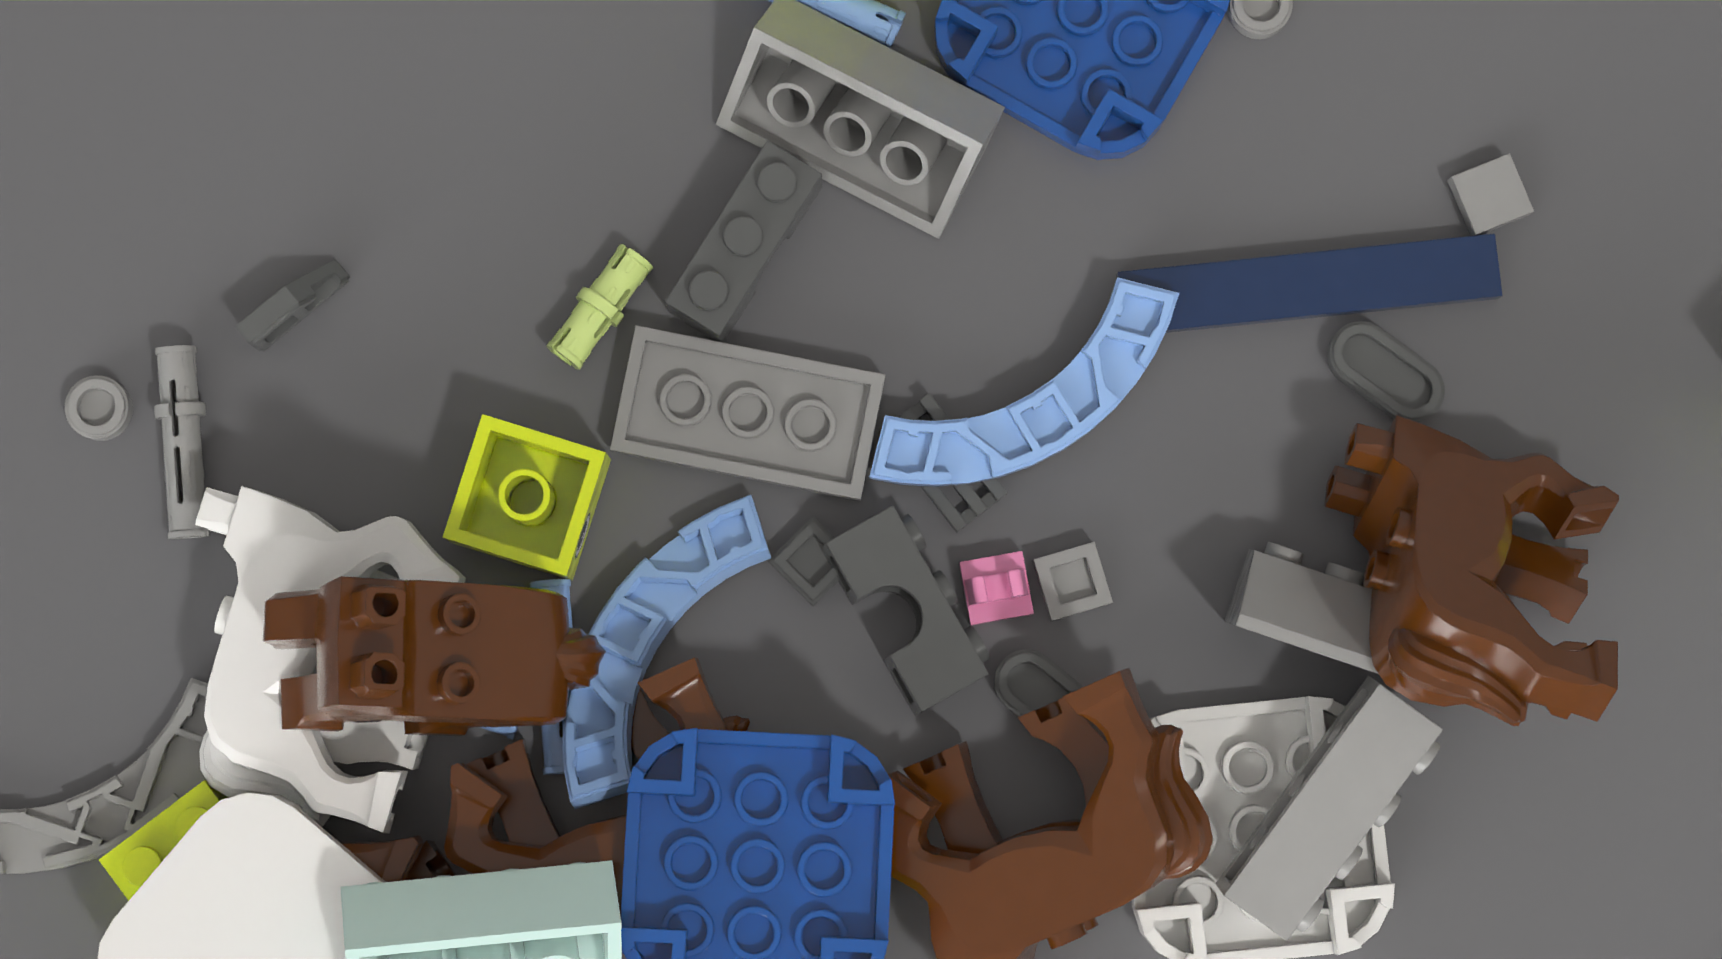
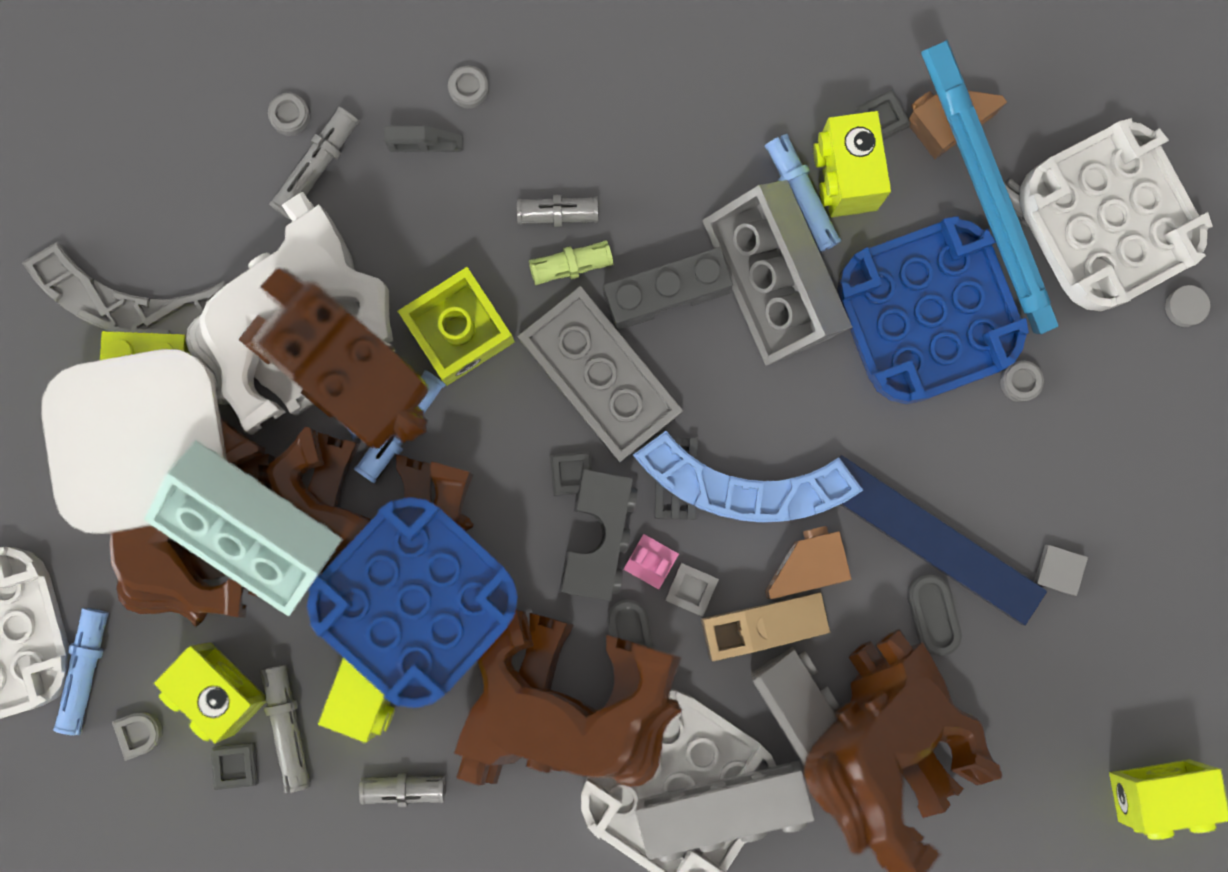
camera: 40 degrees right, 0 degrees up
(293, 194) = (468, 87): none -> light grey tile
(531, 256) = (557, 210): none -> light grey pin
(631, 630) = (452, 434): light blue tile -> none
(1189, 433) = (811, 564): none -> medium nougat slope
(1195, 553) = (764, 626): none -> tan slope

